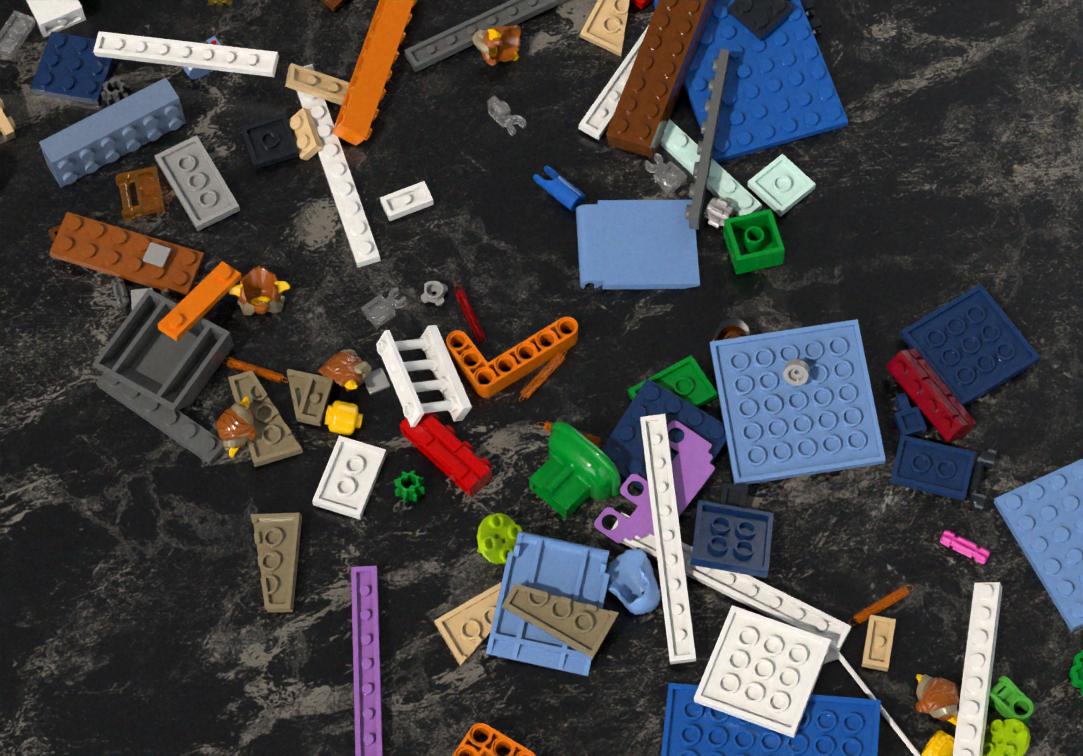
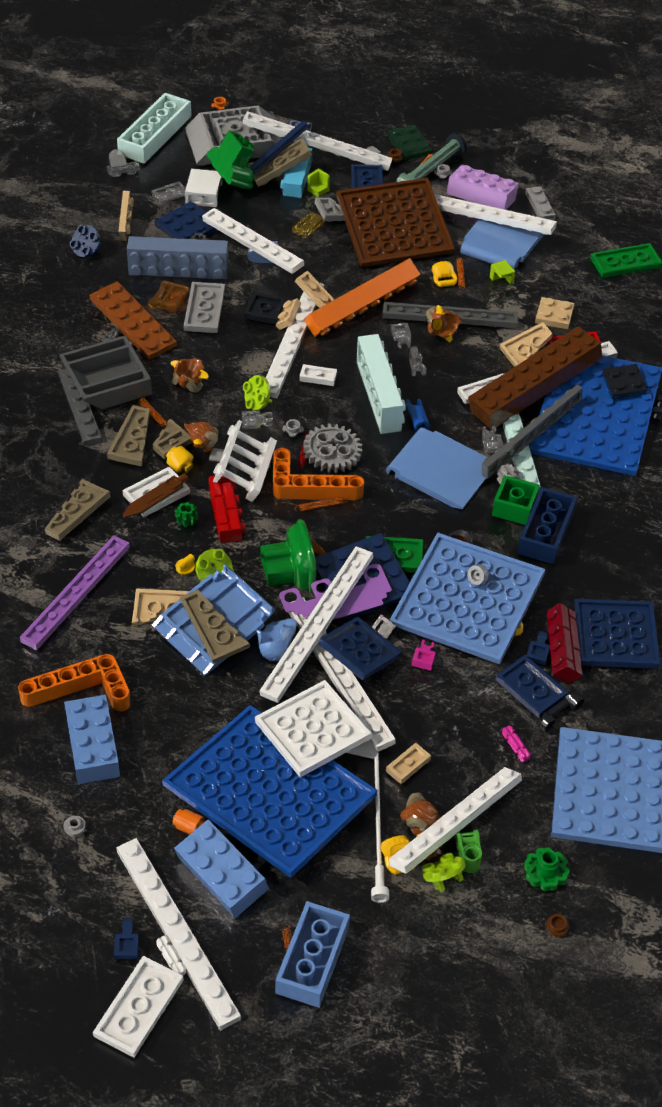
camera: 30 degrees right, 15 degrees down
(156, 254) = (147, 325): light grey piece -> none
(199, 301) = (147, 354): orange plate -> none
(236, 426) = (112, 428): dark orange hair -> none
(354, 264) = (257, 393): none -> lime plate
(357, 486) = (156, 495): none -> reddish brown piece
(456, 83) = (401, 334): none -> clear plate
(459, 553) = (186, 565): none -> yellow plate
(492, 173) = (380, 384): none -> light aqua brick
(501, 294) = (332, 448): none -> light grey gear
(781, 185) = (563, 480): light aqua plate -> none
(799, 504) = (424, 656): none -> dark pink plate
(810, 255) = (547, 525): none -> dark blue brick
(880, 606) = (437, 745): orange piece -> none

